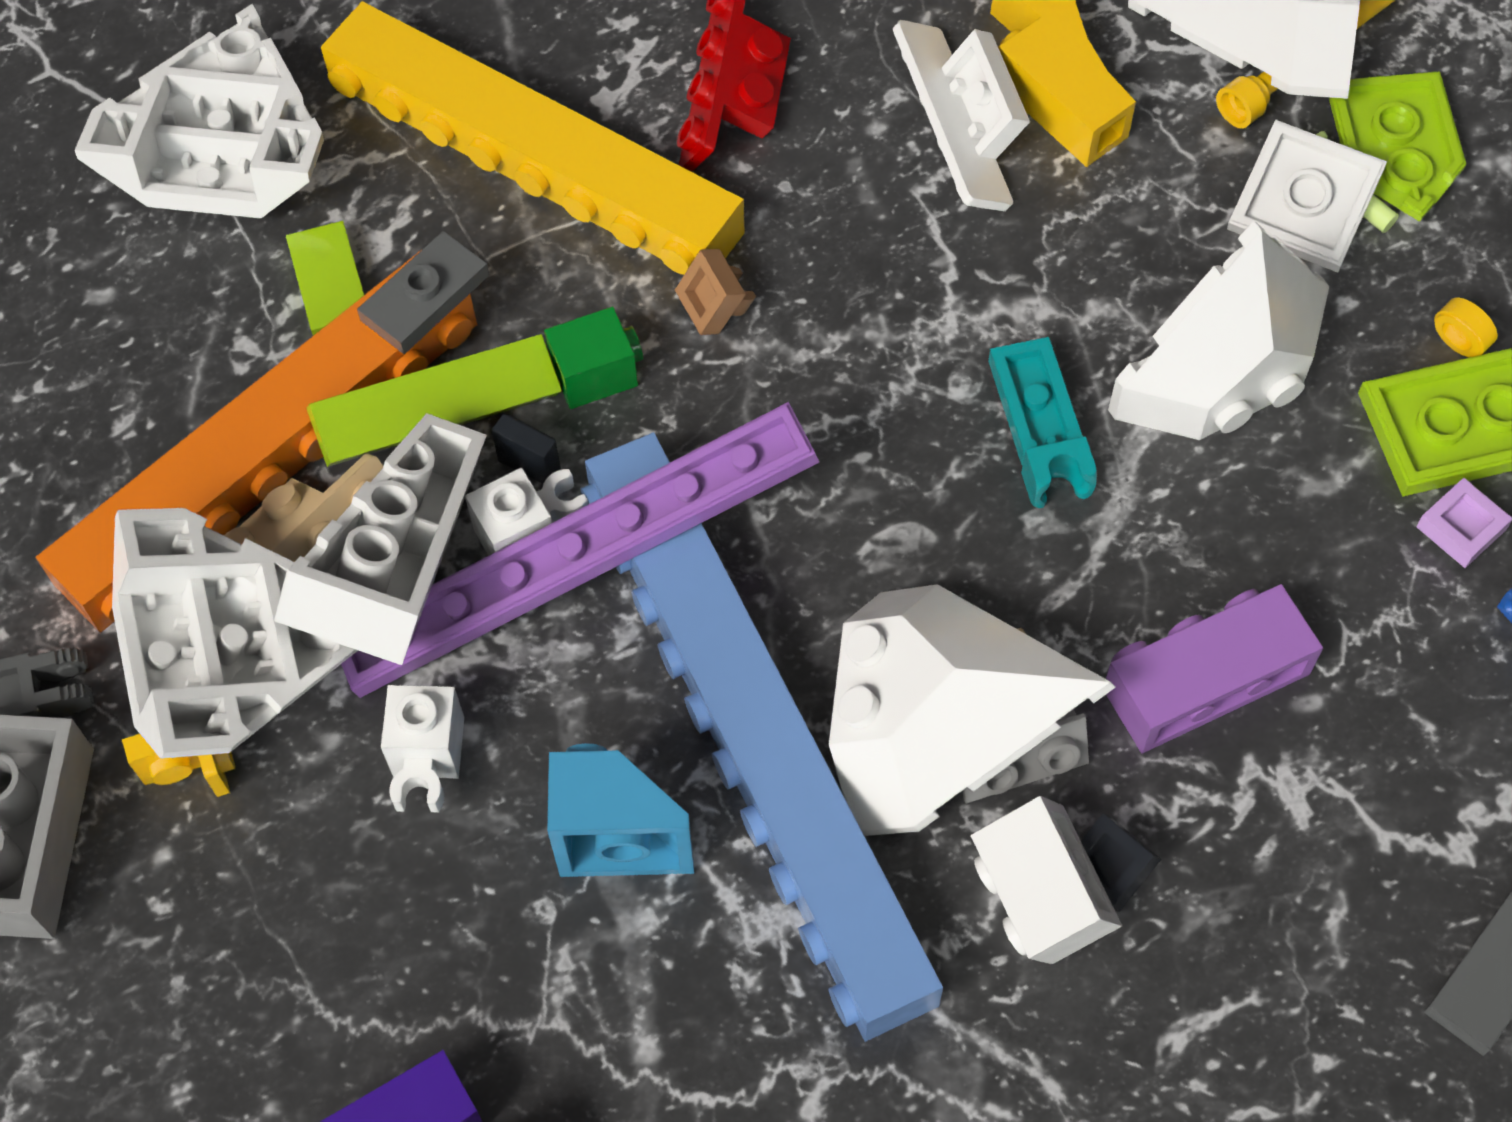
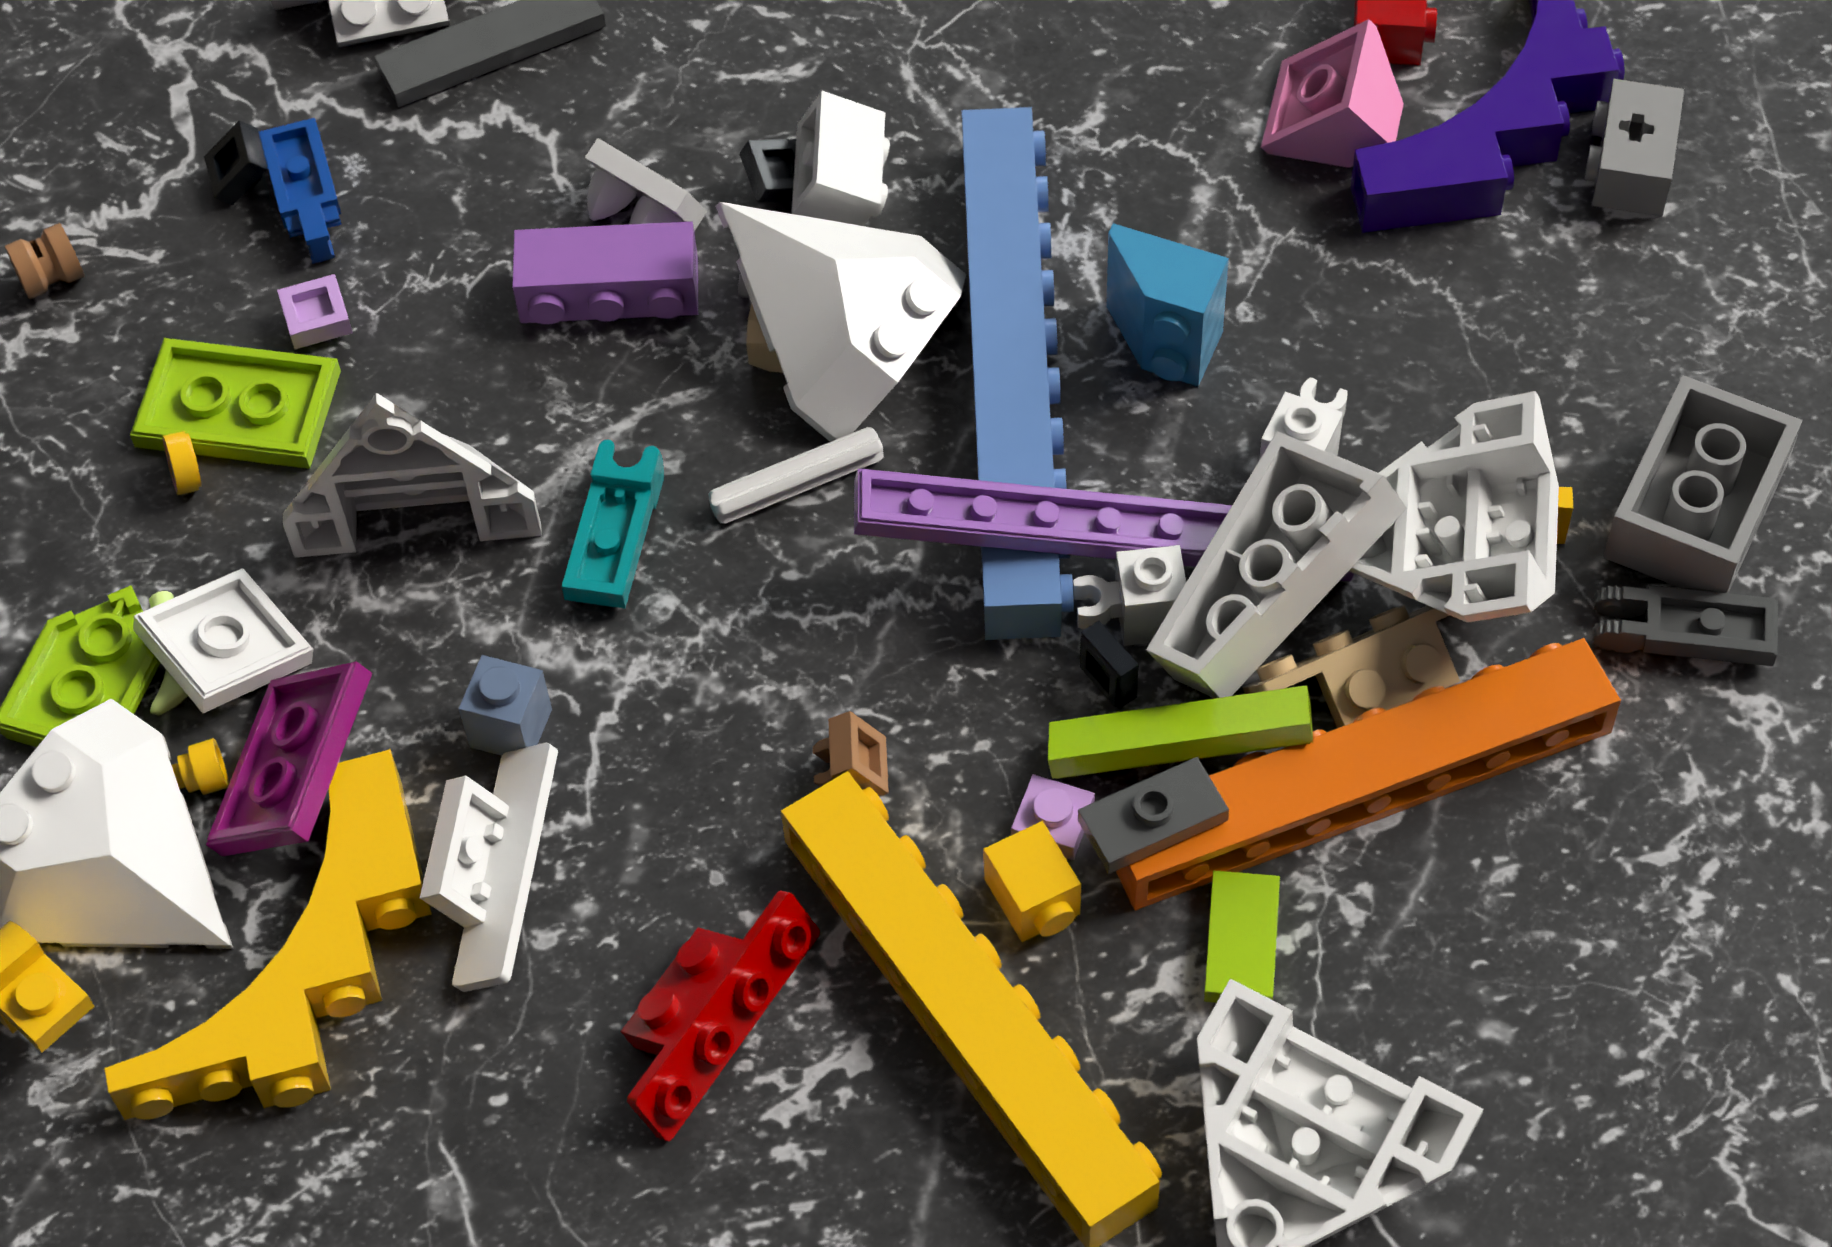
camera: 155 degrees left, 5 degrees down
(517, 245) = (1033, 882): none -> yellow brick
(524, 314) = (1058, 809): none -> lavender plate
(593, 357) = (1003, 733): green brick -> none
(904, 539) = (796, 475): none -> white axle
(1028, 218) = (504, 706): none -> sand blue brick
(1174, 112) = (289, 760): none -> magenta tile
(1236, 785) = (621, 179): none -> white tile

